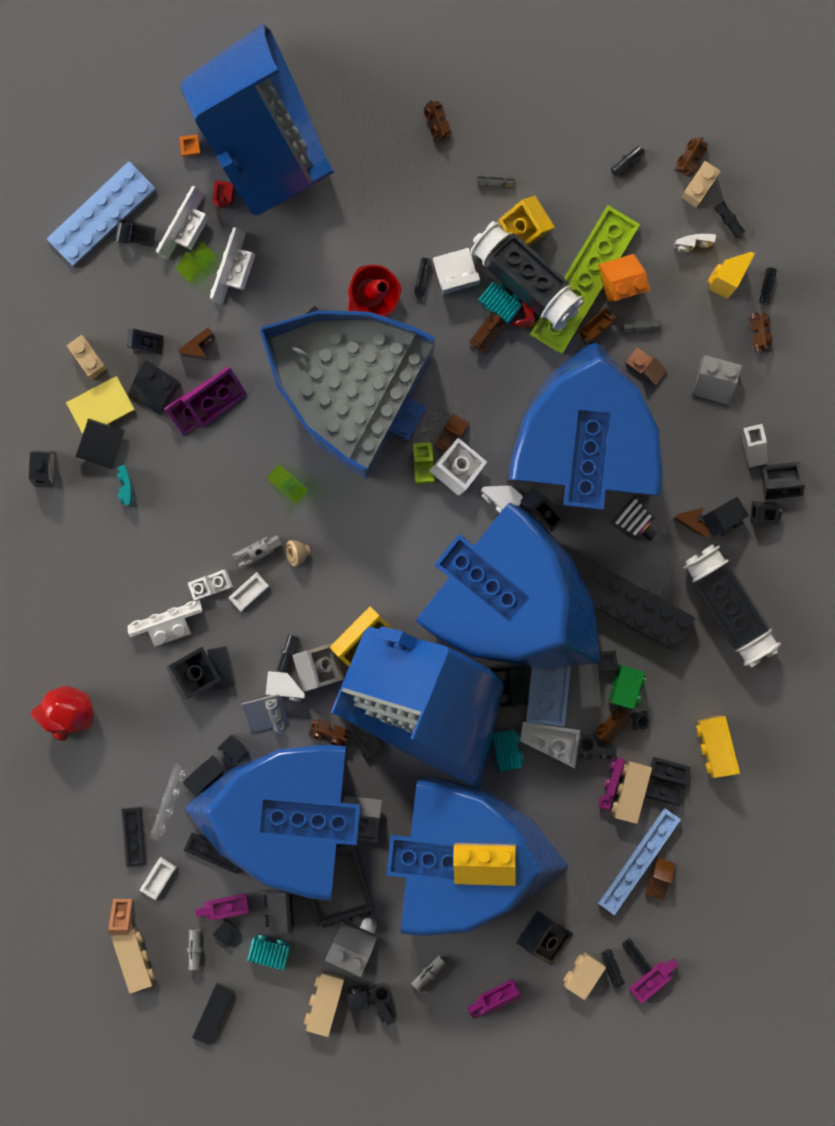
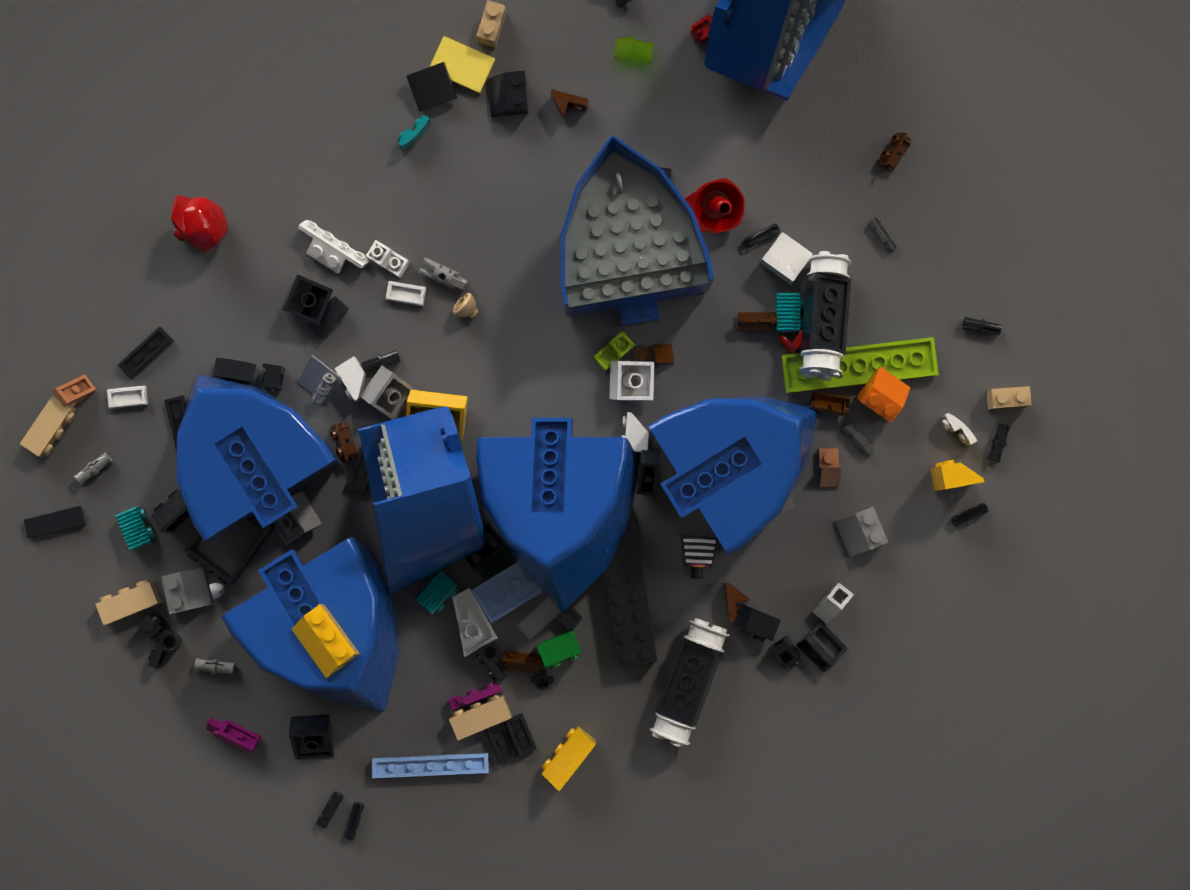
camera: 55 degrees right, 0 degrees up
(42, 468) = (377, 57): black torso -> none
(144, 341) = (538, 59): black slope -> none
(165, 808) = (184, 361): clear plate -> none
(185, 225) = (655, 19): white bracket -> none
(206, 401) = (528, 143): magenta slope -> none
(224, 907) = (144, 466): magenta hinge -> none
(226, 933) = (125, 483): black plate -> none
(233, 268) = (651, 82): white bracket -> none
(286, 483) = (514, 256): clear neon green slope -> none
(527, 221) = (870, 283): yellow slope -> none
(584, 975) = (306, 791): tan brick -> none
(653, 980) = (344, 849): magenta hinge -> none
(660, 878) = (429, 792): reddish brown slope -> none
(695, 149) = (1034, 372): reddish brown hinge -> none
(761, 323) = (924, 544): reddish brown hinge -> none

